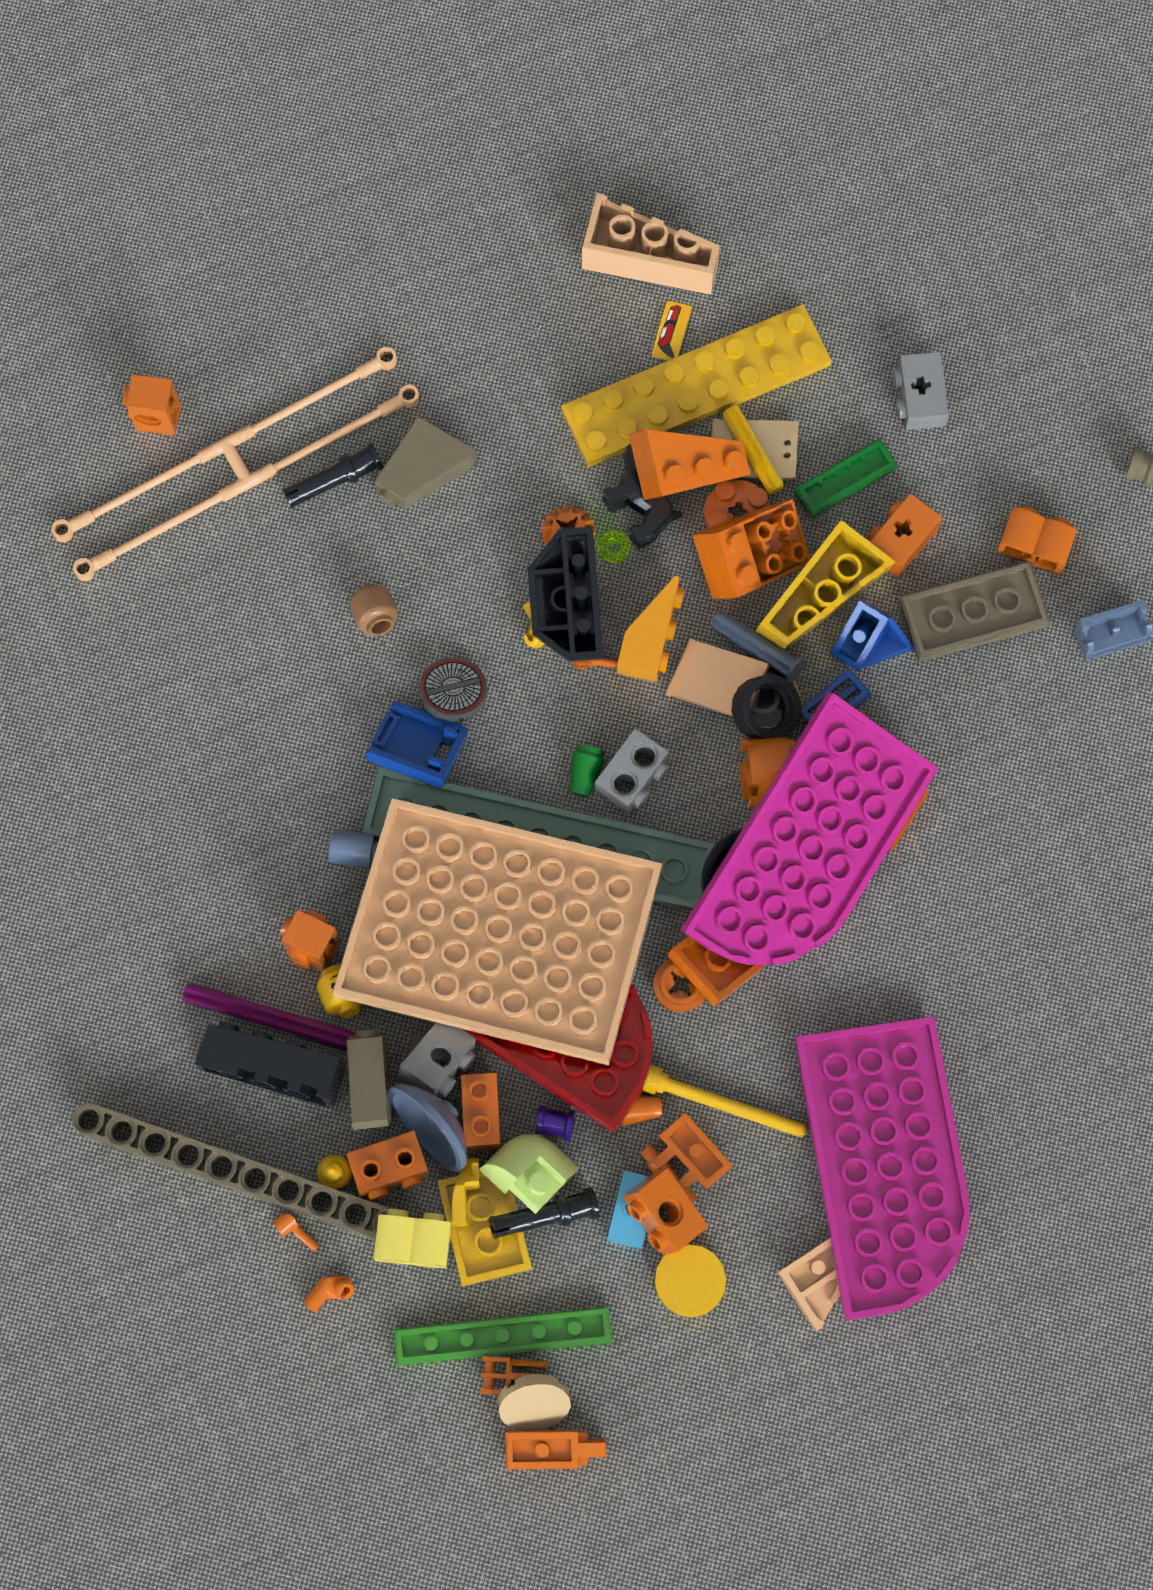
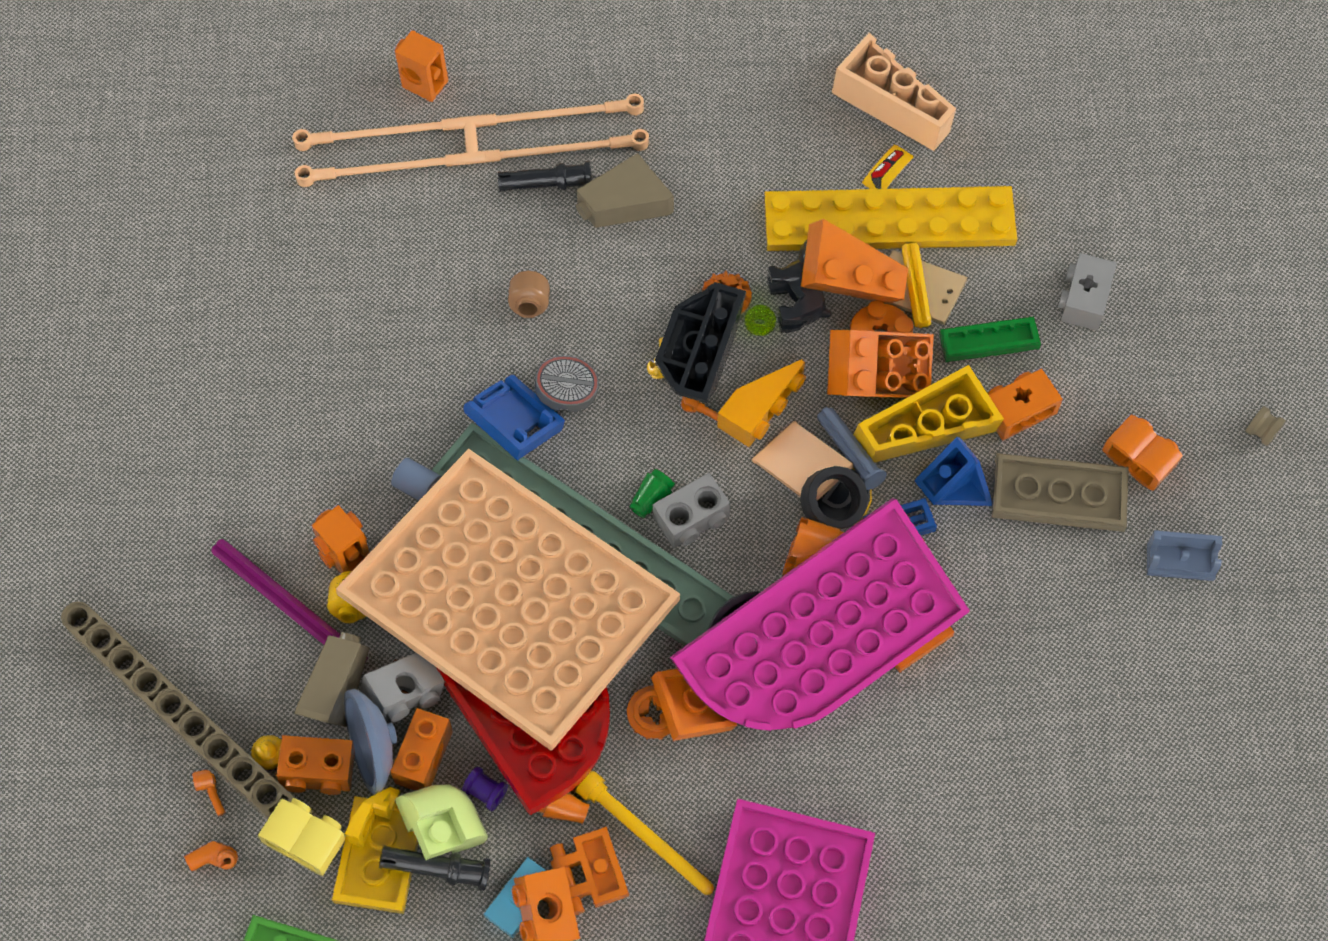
camera: 20 degrees right, 10 degrees down
(271, 1064) = (258, 635): black wedge -> none

